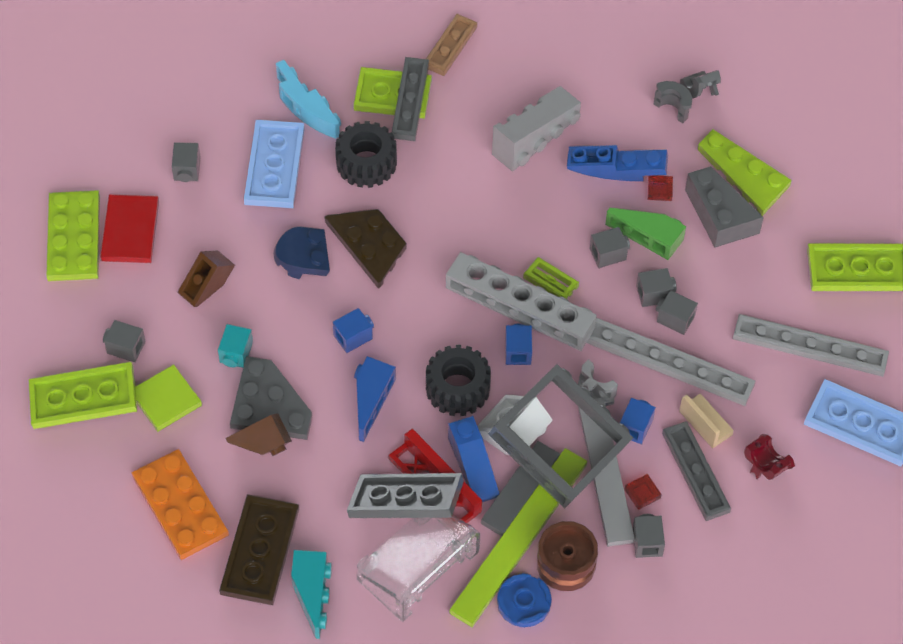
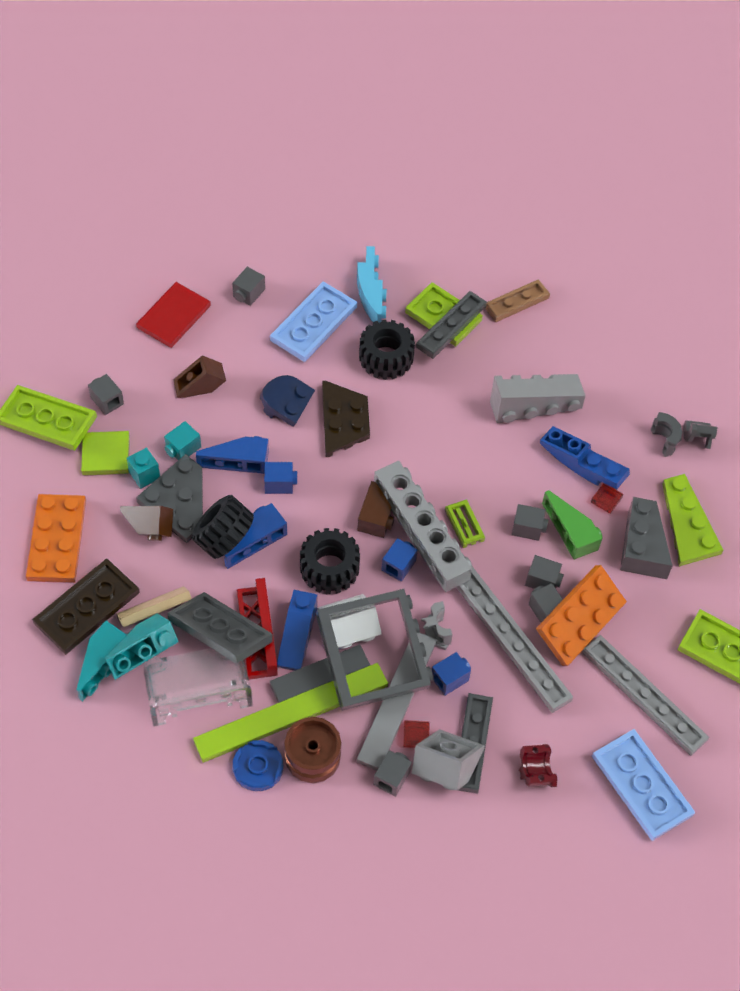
camera: 30 degrees right, 0 degrees up
(73, 235) = (129, 298): lime plate -> none
(217, 391) = (143, 468): none -> teal brick
(301, 328) = (240, 455): none -> blue slope
(324, 513) = (154, 606): none -> tan tile
(341, 402) = (222, 526): none -> black tyre
(344, 551) = (141, 644): none -> teal slope
(466, 313) = (375, 513): none -> reddish brown slope
(688, 496) = (446, 759): none -> light grey slope
(705, 420) = (510, 706): tan panel -> none
(714, 305) = (581, 615): none -> orange plate

